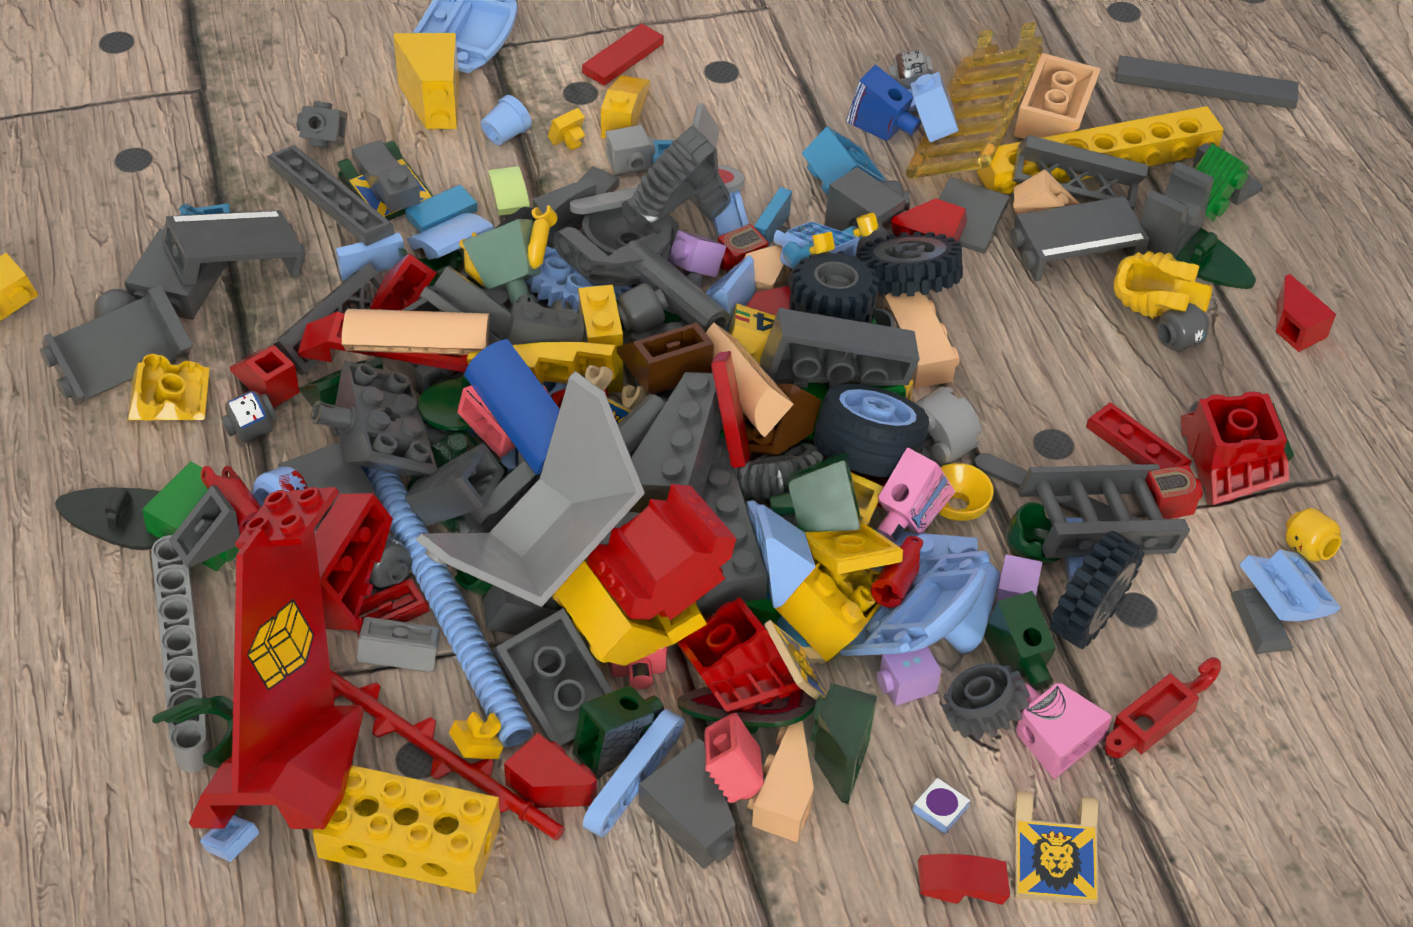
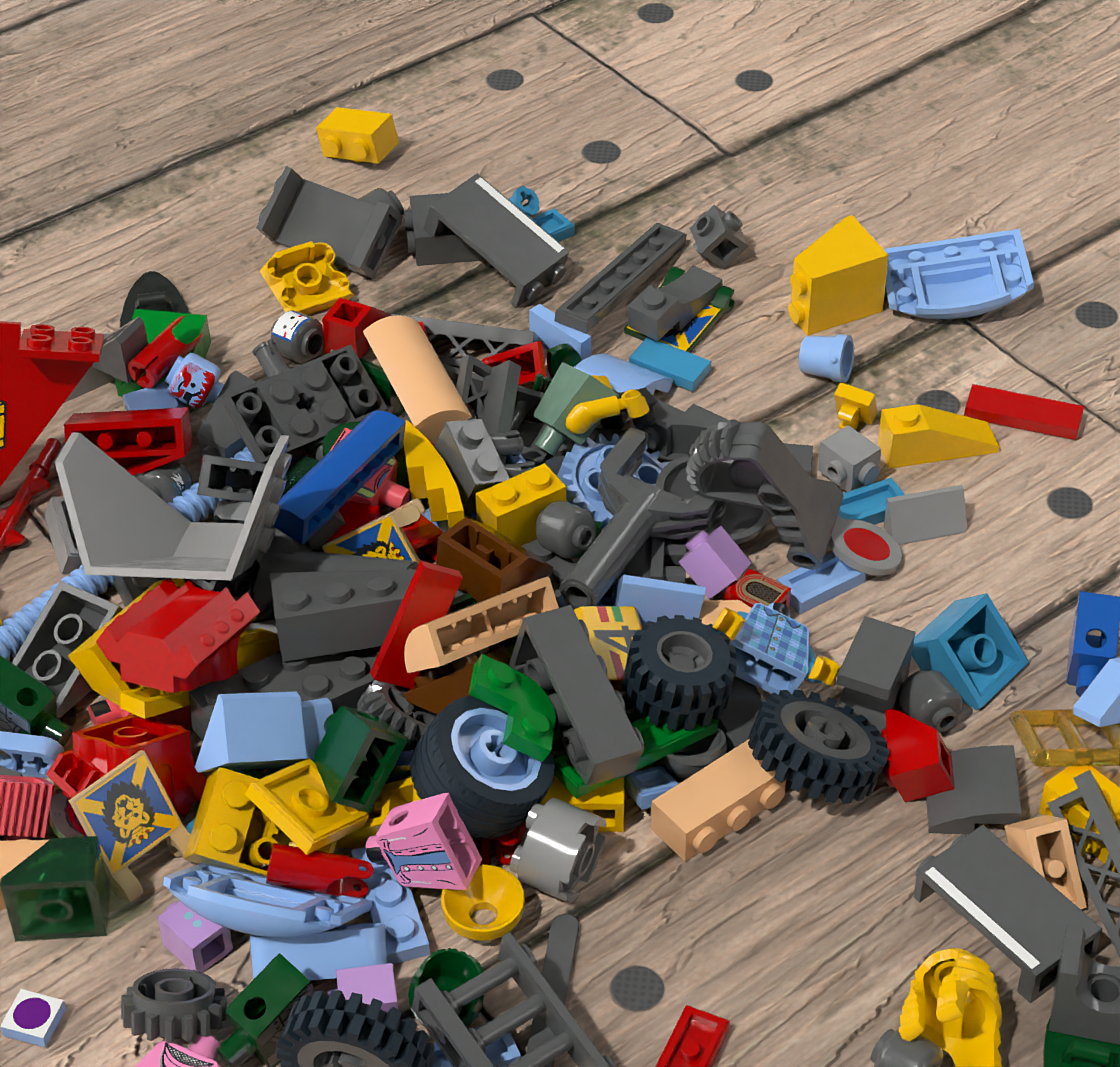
camera: 70 degrees right, 5 degrees down
(508, 190) = (731, 395): yellowish green slope -> none
(774, 214) = (829, 612): dark azure tile -> none
(834, 378) = (528, 707): none -> green plate

